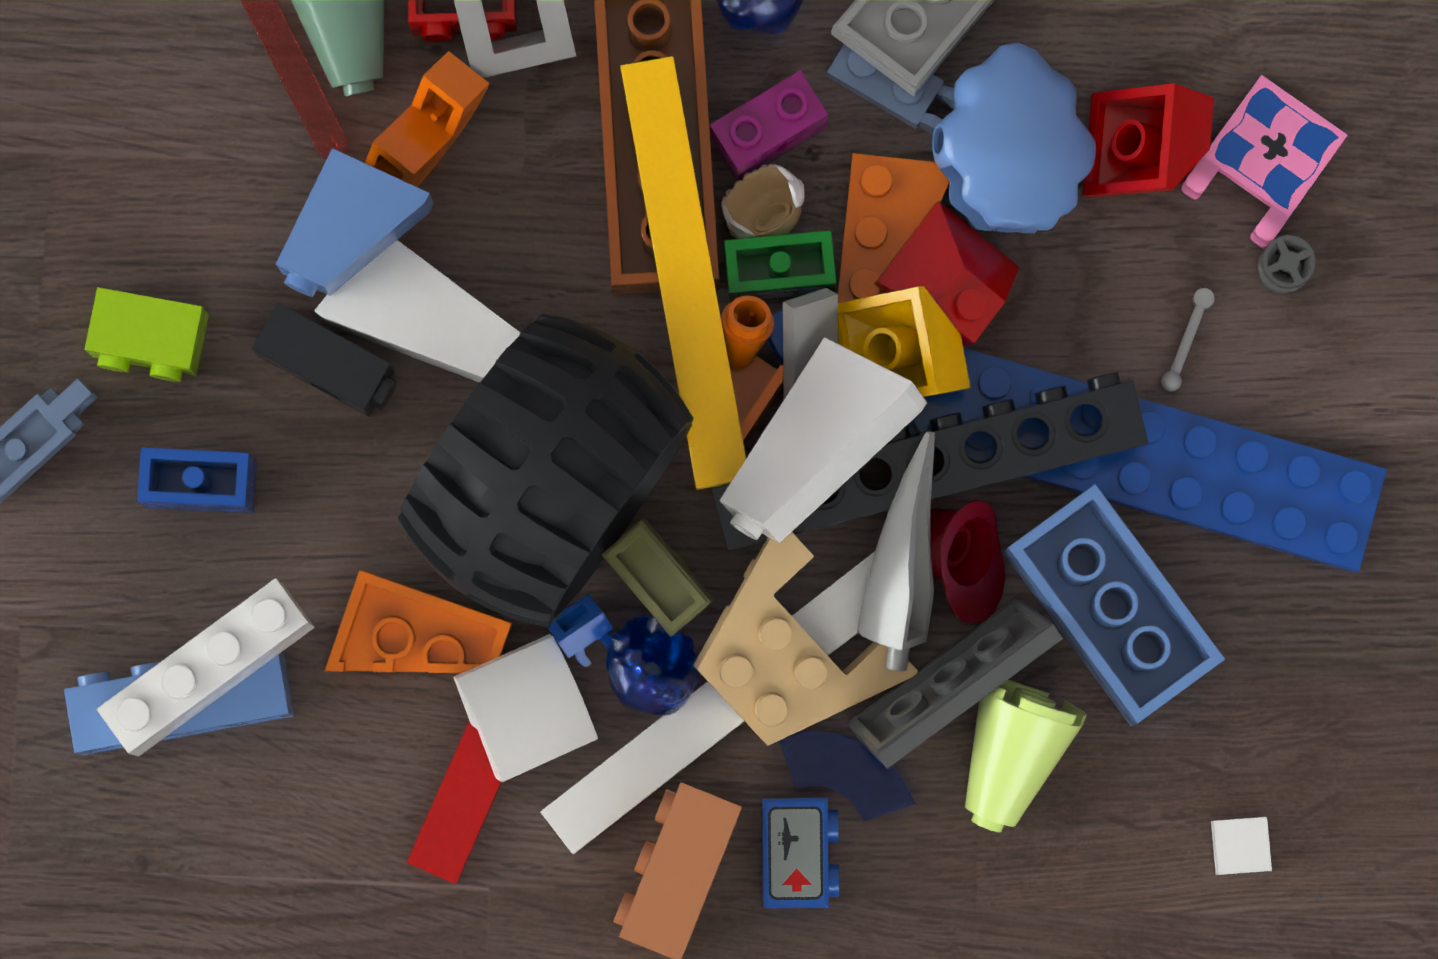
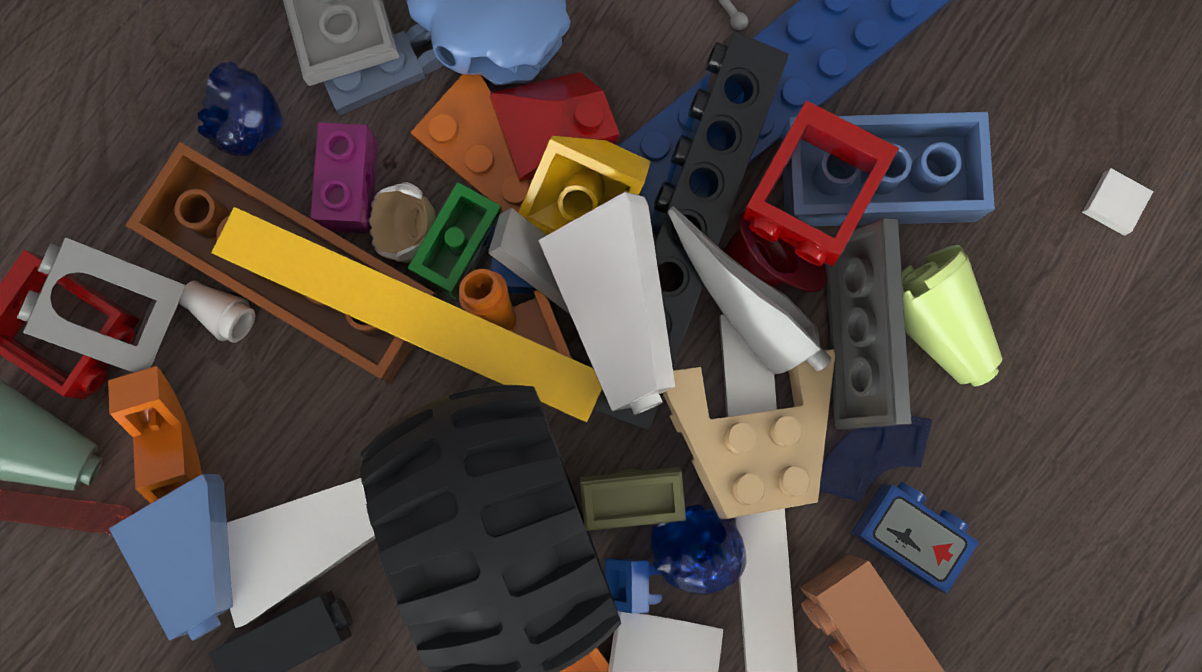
camera: 55 degrees left, 0 degrees up
(572, 99) = (220, 312): none -> white cone
(1098, 538) = (840, 140): none -> red window

